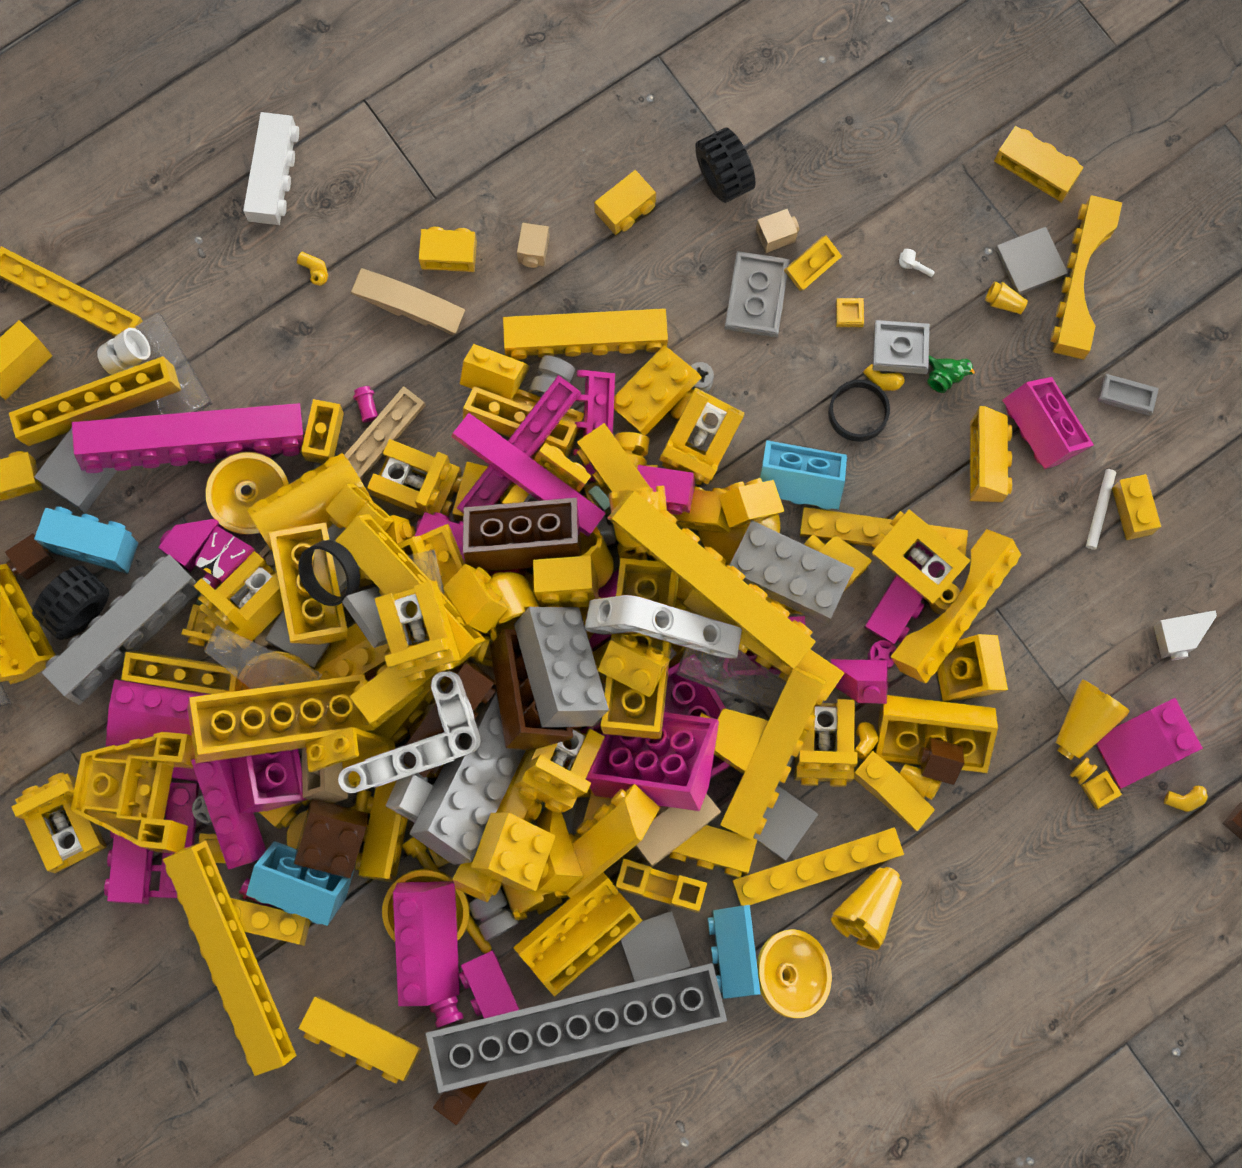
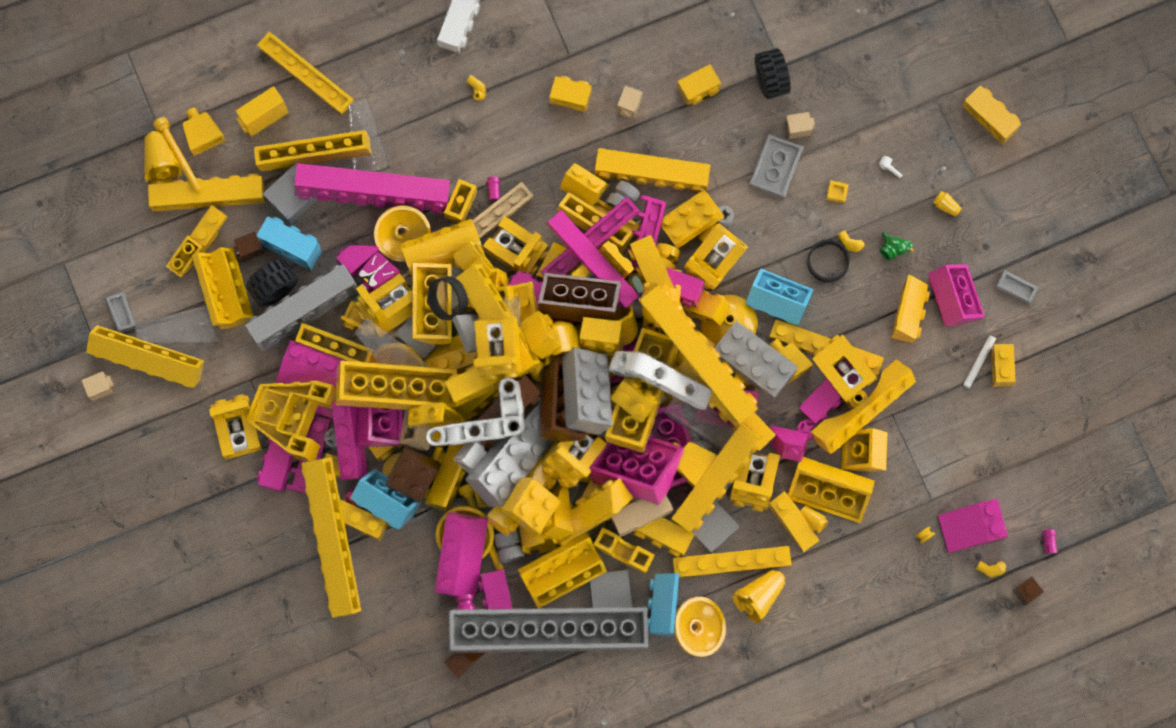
camera: 15 degrees right, 0 degrees up
(124, 351) = (338, 120): white wheel -> none
(360, 1039) = (405, 609): yellow brick -> none
(407, 300) = (536, 124): tan slope -> none
(750, 502) = (738, 308): yellow brick -> none
(812, 263) = (819, 152): yellow plate -> none
(868, 738) = (784, 483): yellow arm -> none
(901, 347) = (866, 223): light grey tile -> none
(941, 760) = (829, 507): reddish brown brick -> none
(1031, 260) = (971, 181): light grey tile -> none
(1076, 328) = (991, 233): yellow arch -> none
(1088, 720) = (935, 502): yellow cone -> none
(1101, 790) = (935, 550): yellow tile -> none
(1182, 634) = (1013, 457): white slope -> none

